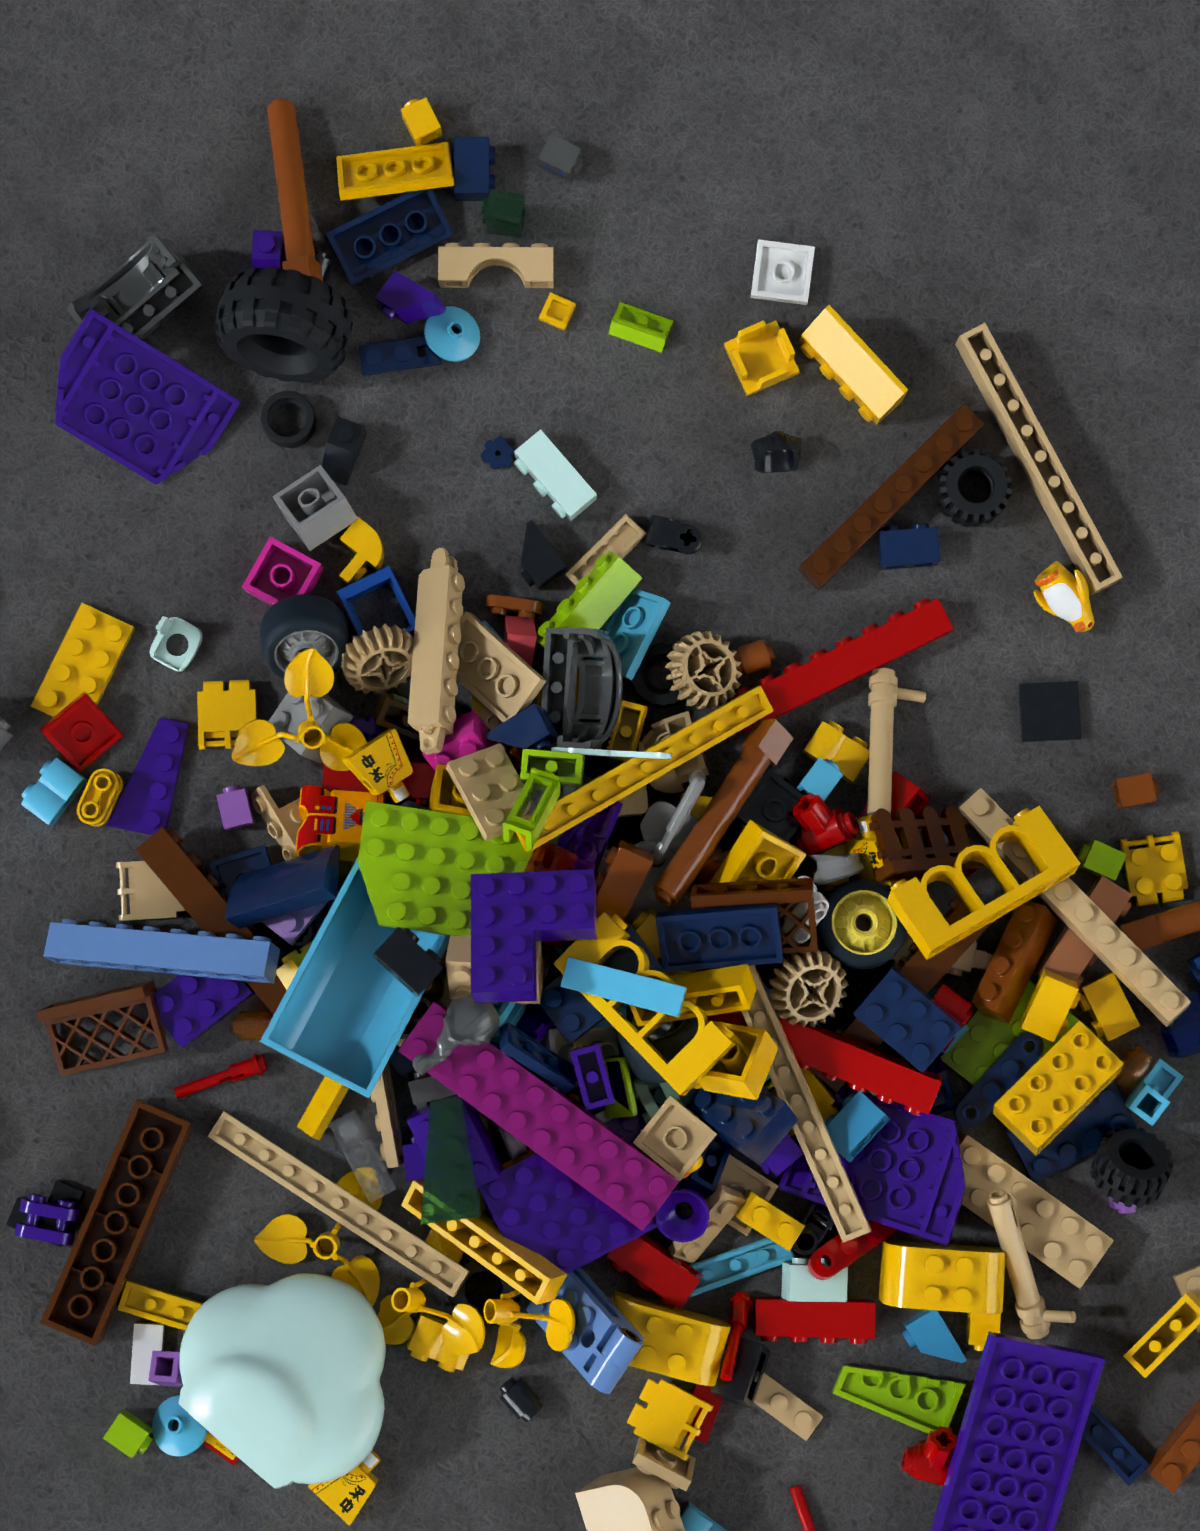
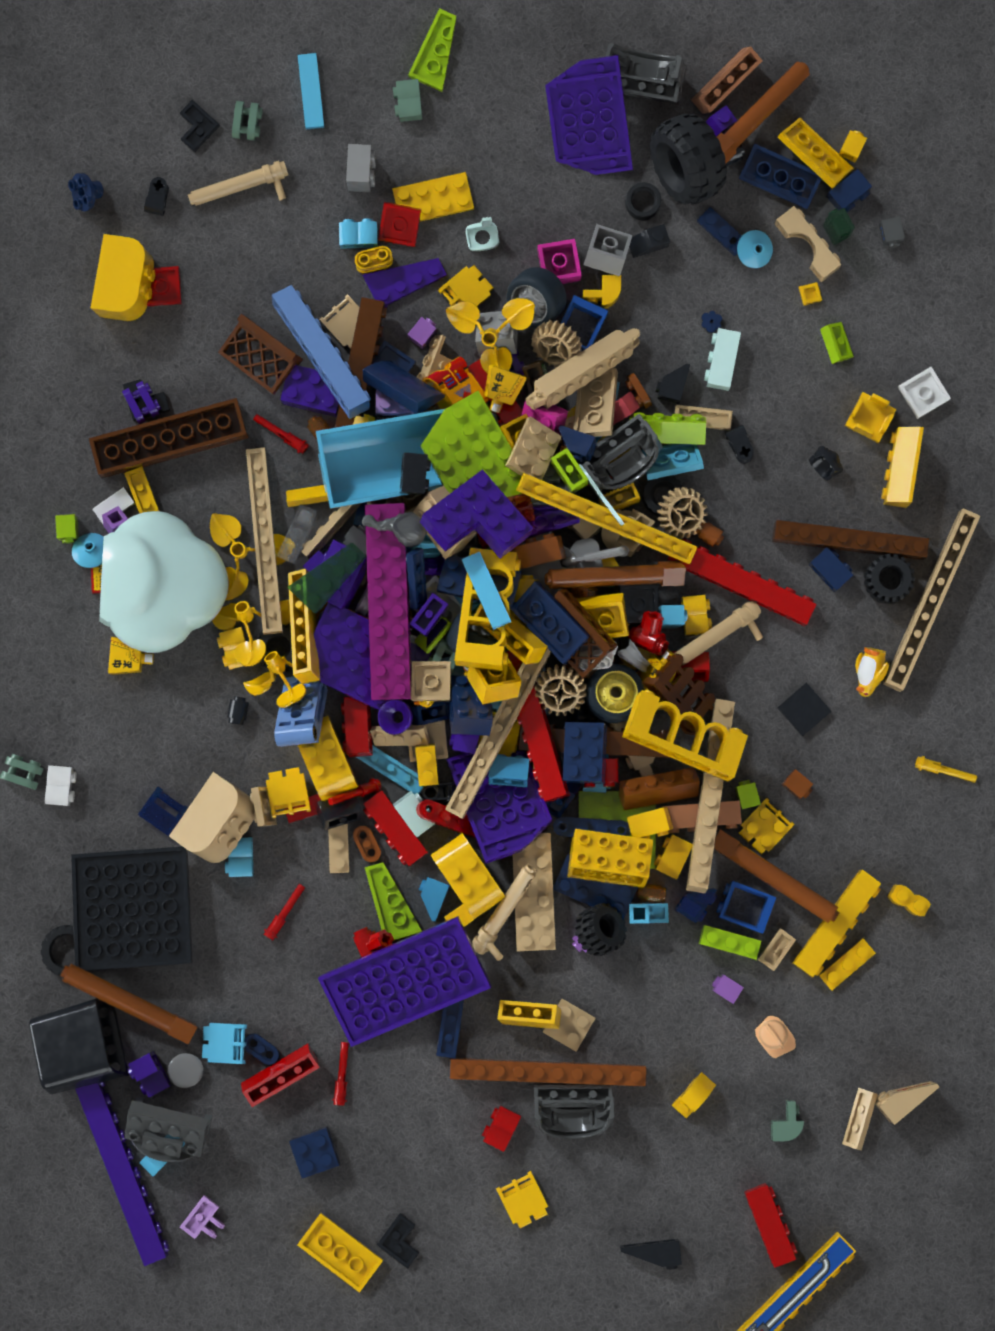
camera: 50 degrees right, 0 degrees up
(222, 206) = (726, 80): none -> nougat brick
(407, 300) = (753, 212): dark purple slope -> none
(533, 806) = (541, 474): lime window -> none
(805, 1367) = (366, 844): none -> dark orange plate

